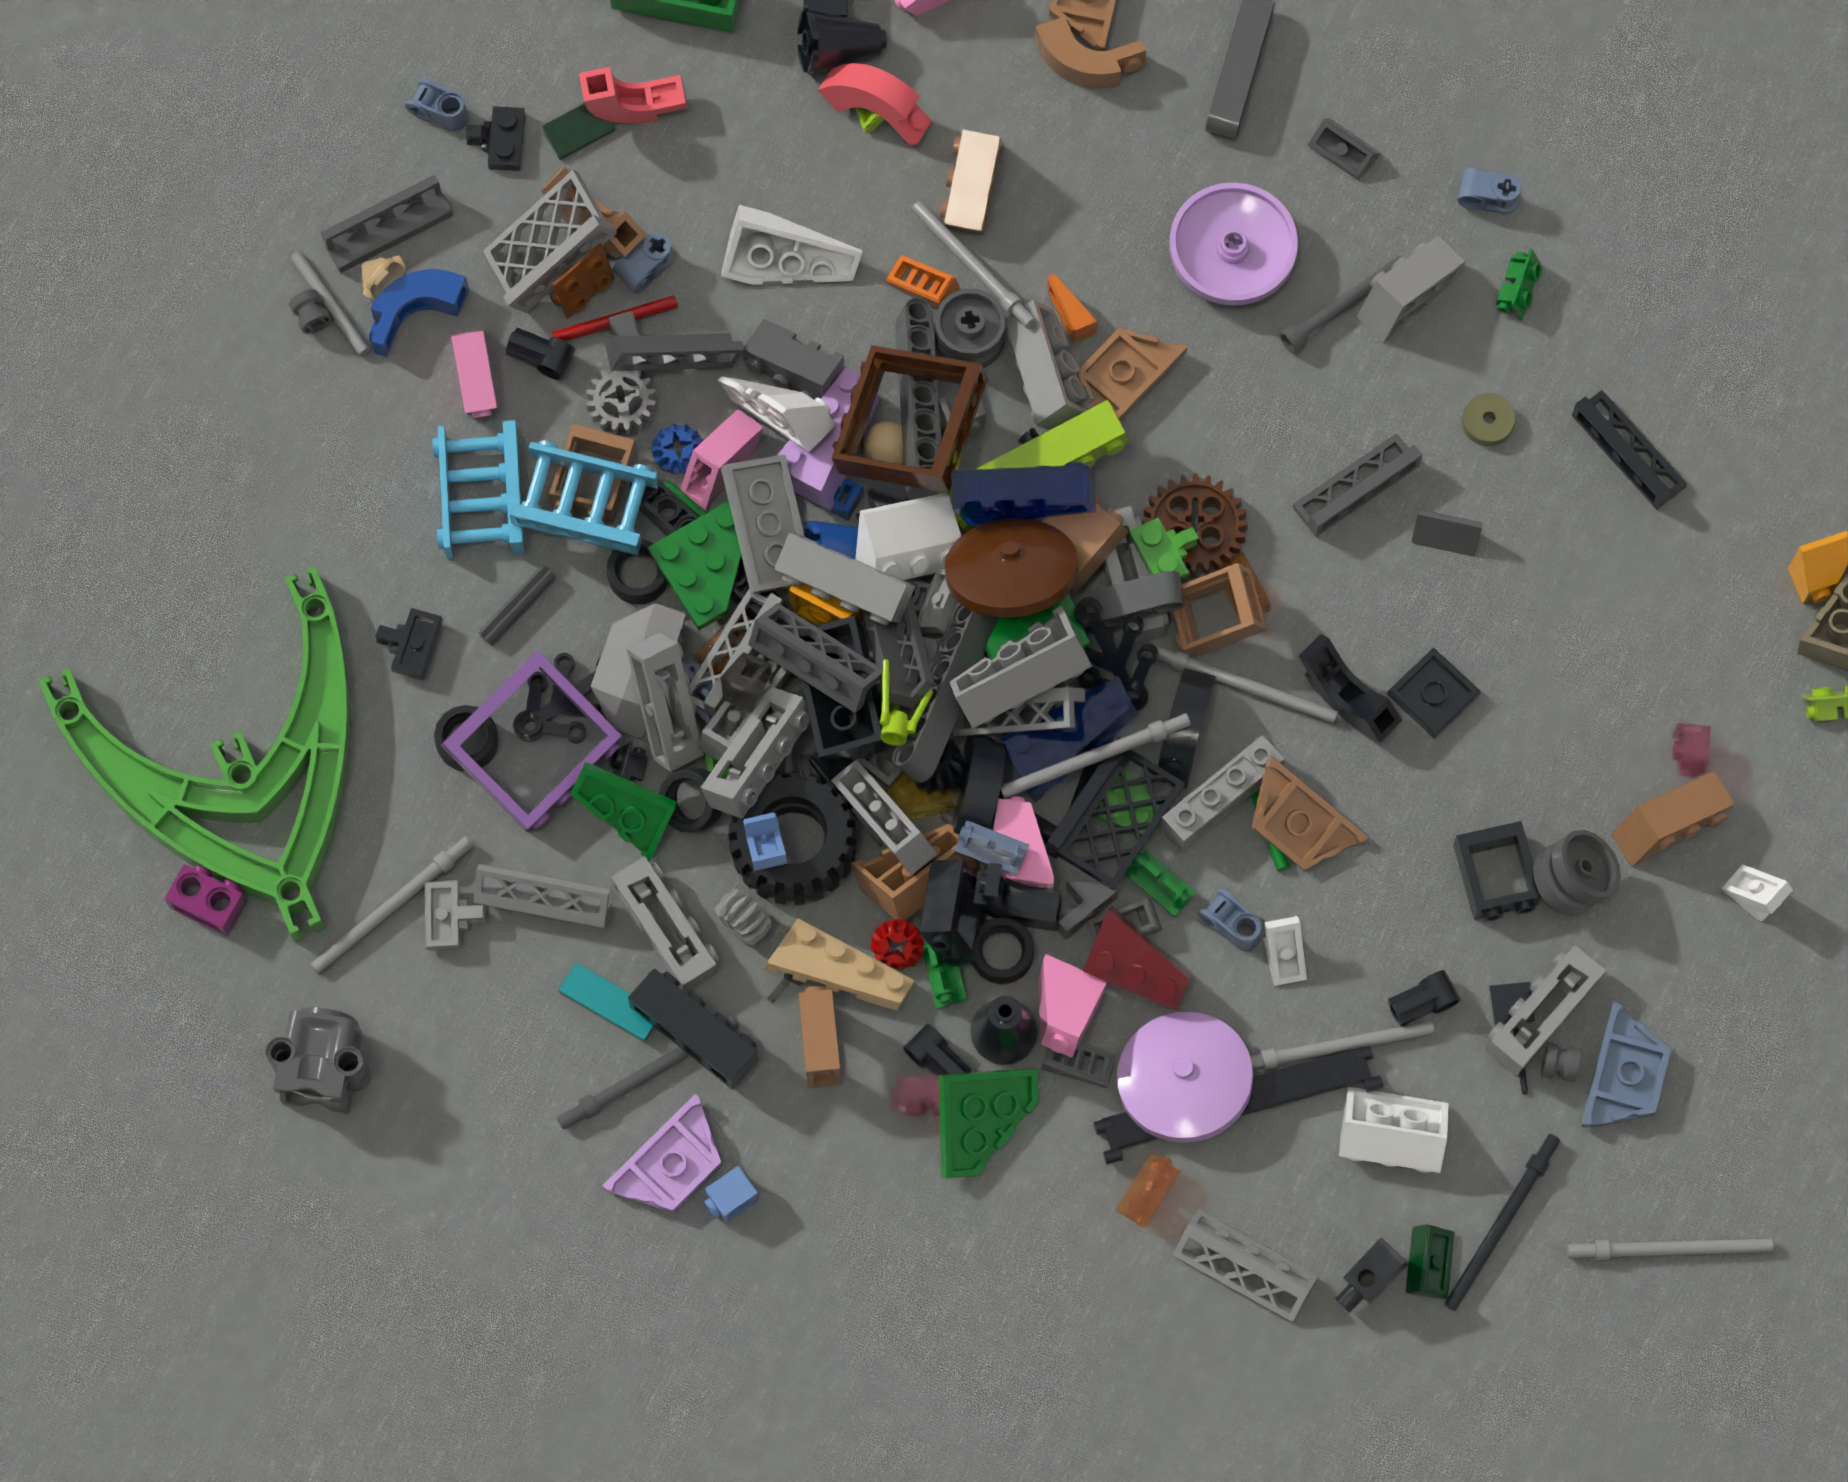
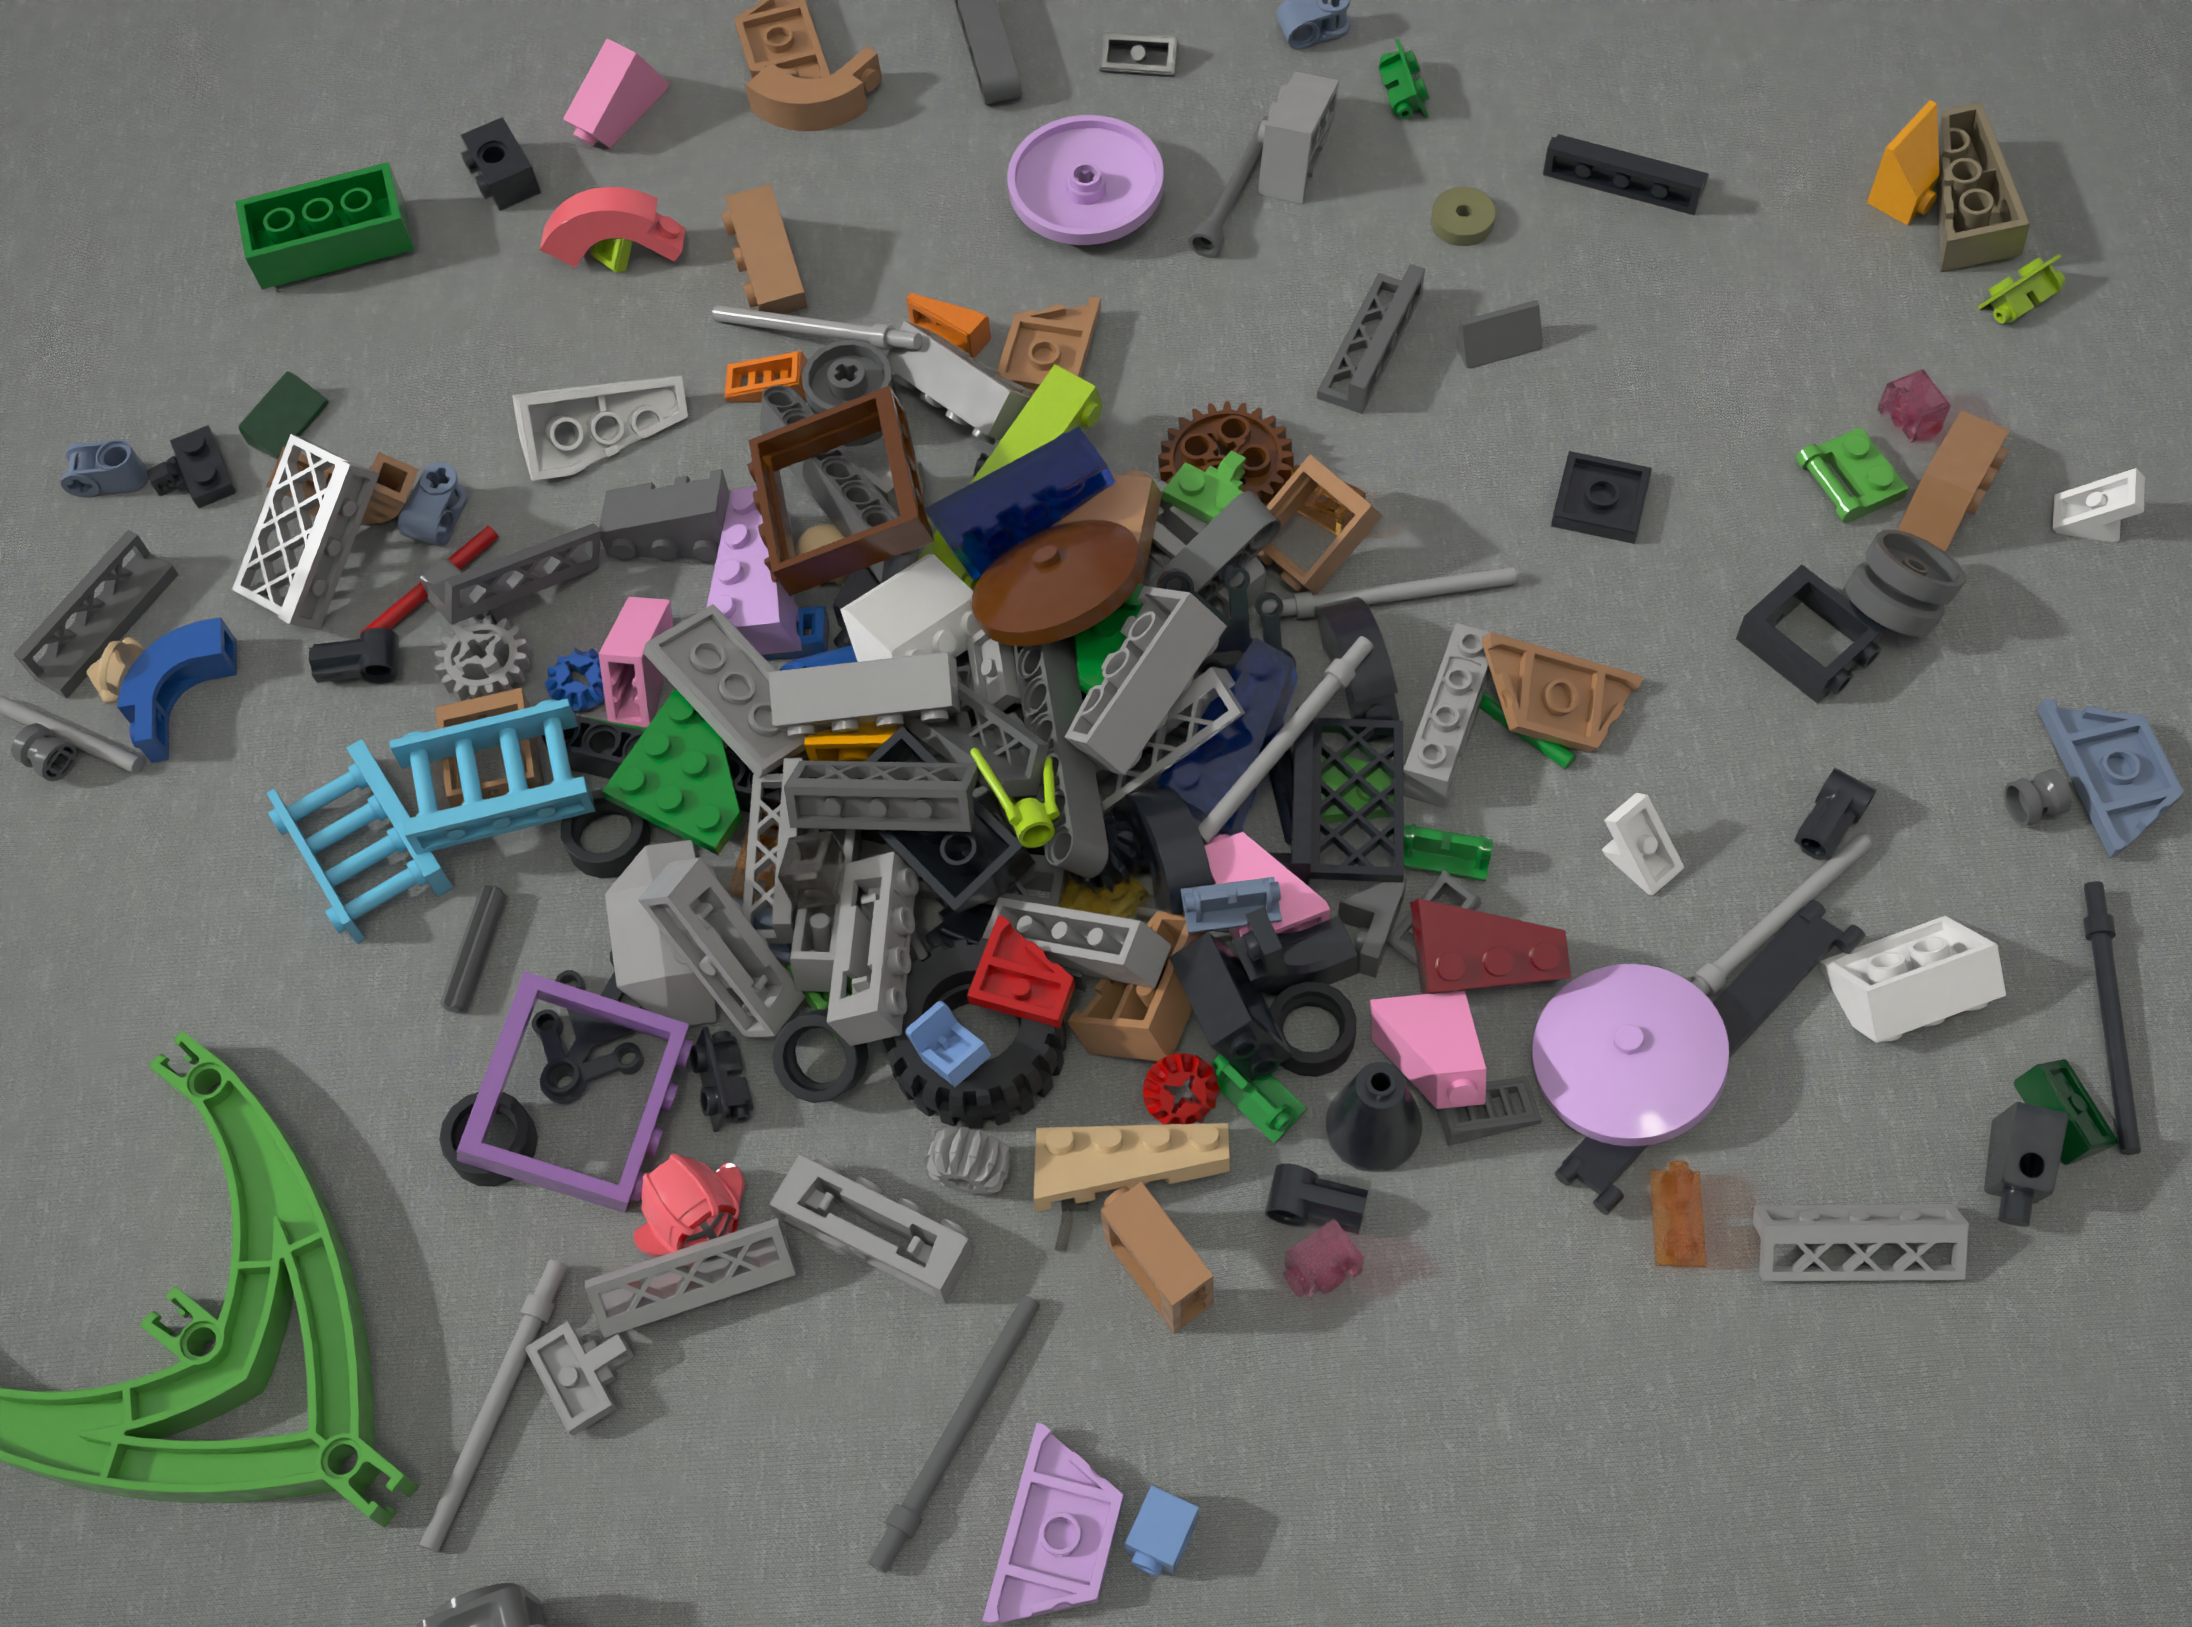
camera: 25 degrees left, 10 degrees down
(201, 906) = (227, 1548): magenta brick -> none
(412, 642) = (359, 1062): black hinge -> none
(474, 373) = (283, 713): bright pink slope -> none
(563, 850) = (686, 1202): none -> coral piece
(582, 281) = (367, 556): dark orange hinge -> none
(604, 1000) = (855, 1367): teal tile -> none
(628, 807) = (739, 1105): green wing -> none
(630, 102) = (328, 360): coral arch -> none
(694, 1028) = (987, 1335): black brick -> none
(785, 410) = (679, 563): white wedge -> none
(834, 823) = (1020, 979): none -> red wing
(836, 40) = (528, 196): black cone -> none
(980, 1115) = (1418, 1242): green plate -> none
(1227, 915) = (1555, 845): sand blue piece -> none
(1345, 693) = (1499, 540): black arch -> none
(1503, 999) = (1933, 770): black piece -> none
(1578, 969) = (1987, 804): light grey brick -> none
(1625, 772) = (1862, 470): none -> bright green plate

